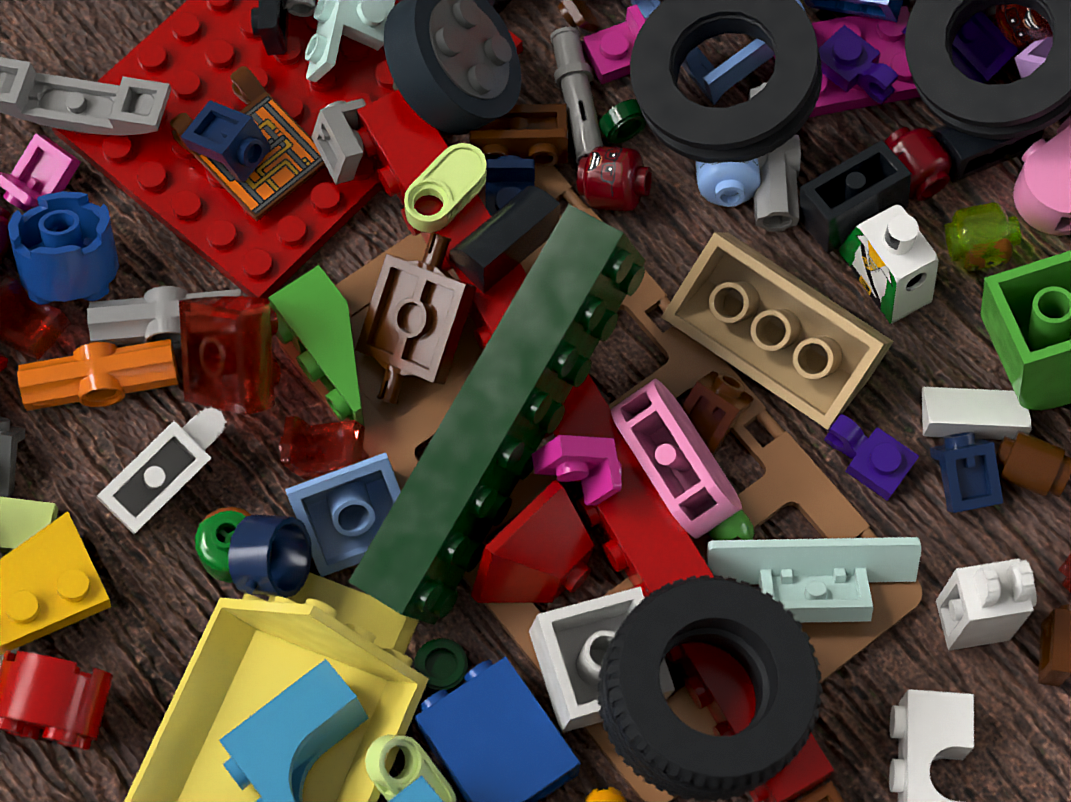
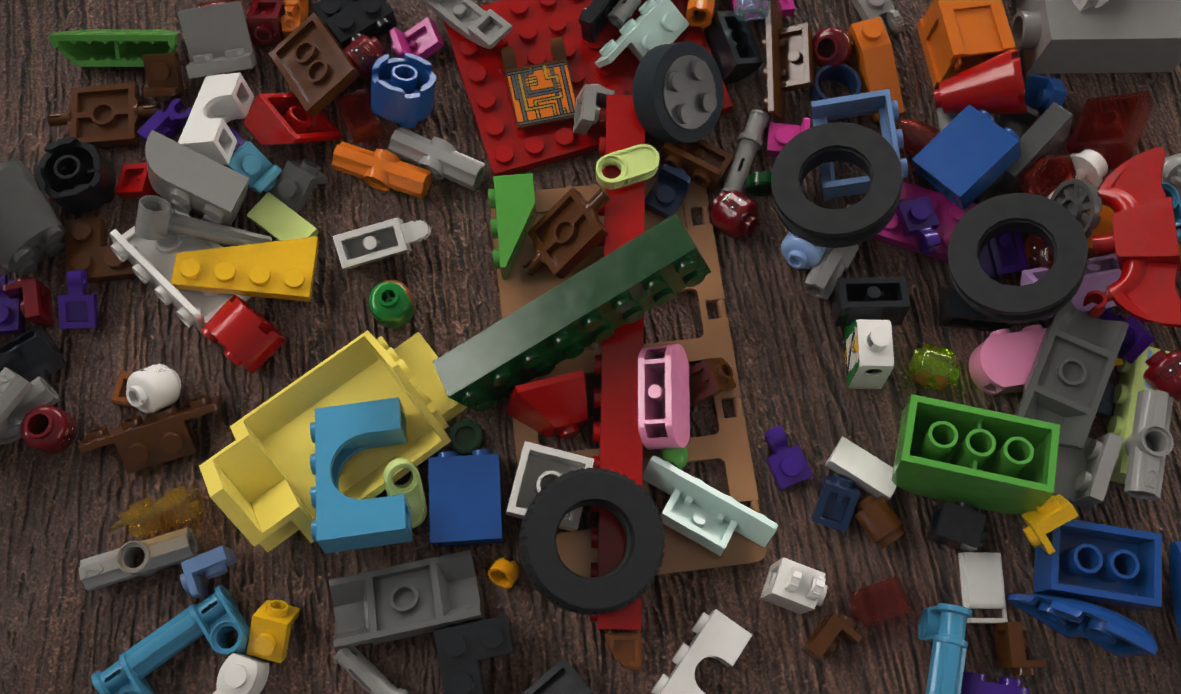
camera: 30 degrees right, 5 degrees up
(227, 138) = (526, 75): dark blue bracket -> none
(229, 353) = (454, 196): clear red brick -> none
(251, 550) = (392, 312): dark blue piece -> none
(320, 447) = (474, 278): clear red bracket -> none
(345, 510) = (461, 317): light blue slope -> none
(507, 237) = (640, 214): black brick -> none
(583, 459) = (602, 366): dark pink bracket -> none
(776, 329) = (774, 354): tan slope -> none
(924, 158) = (925, 302): dark red head -> none

